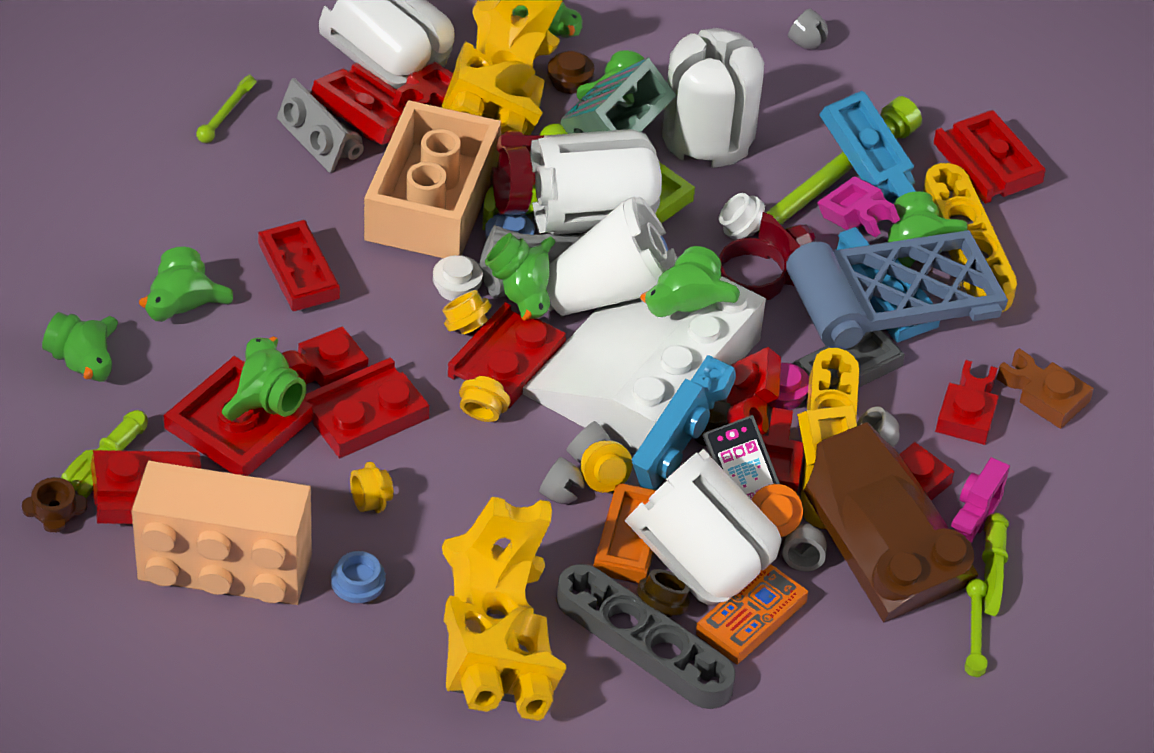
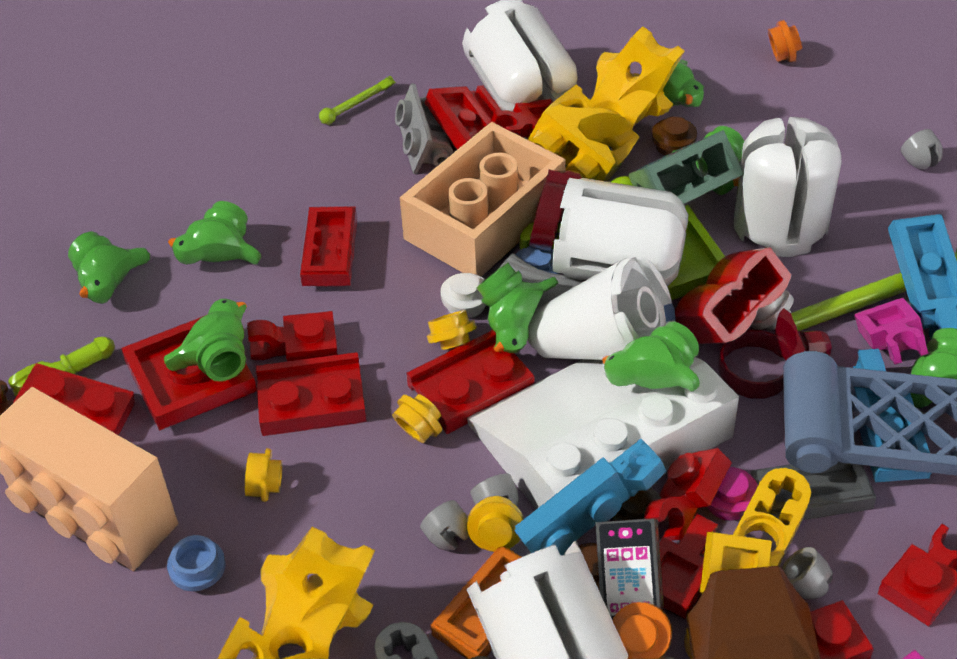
camera: 30 degrees right, 0 degrees up
(713, 209) = (732, 295): none -> red brick

